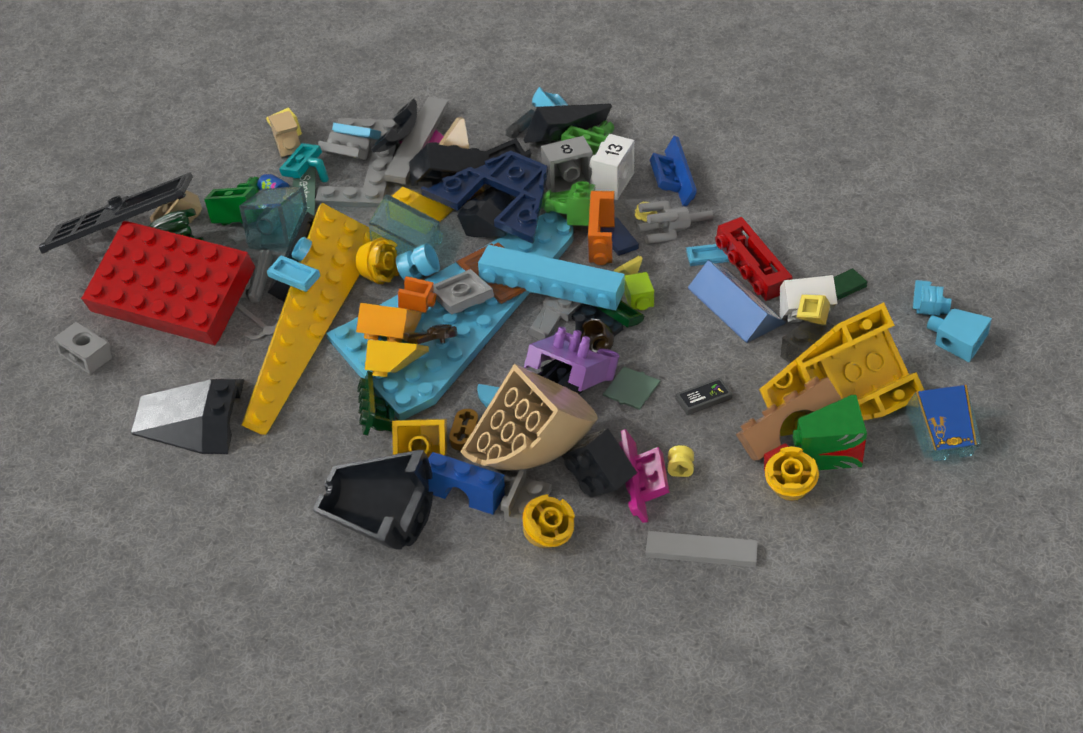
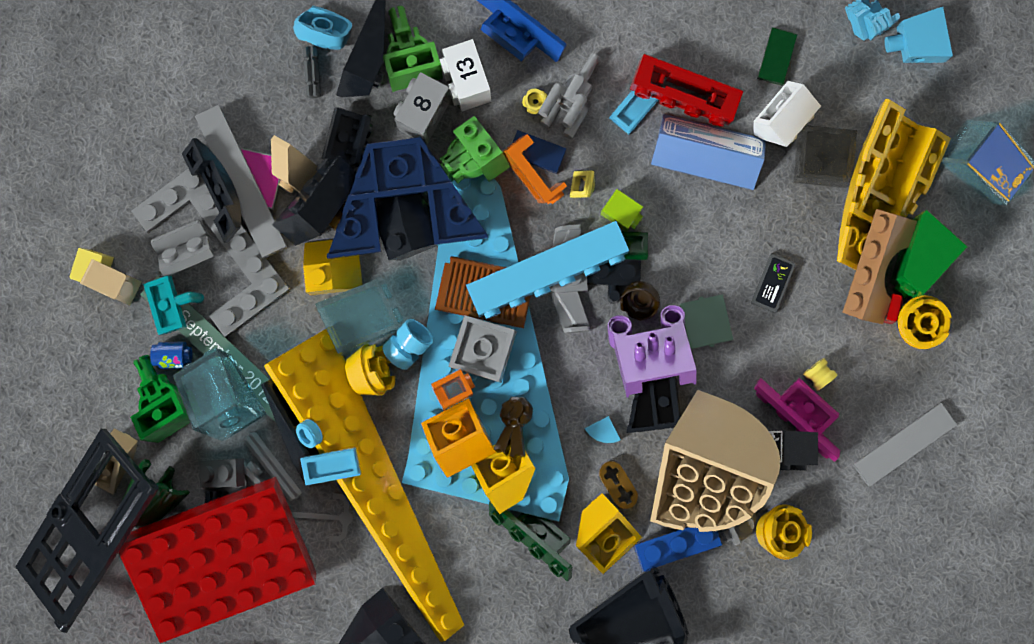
camera: 40 degrees left, 40 degrees up
(356, 131) = (178, 223): medium azure tile -> none
(814, 309) = (809, 132): light yellow slope -> none

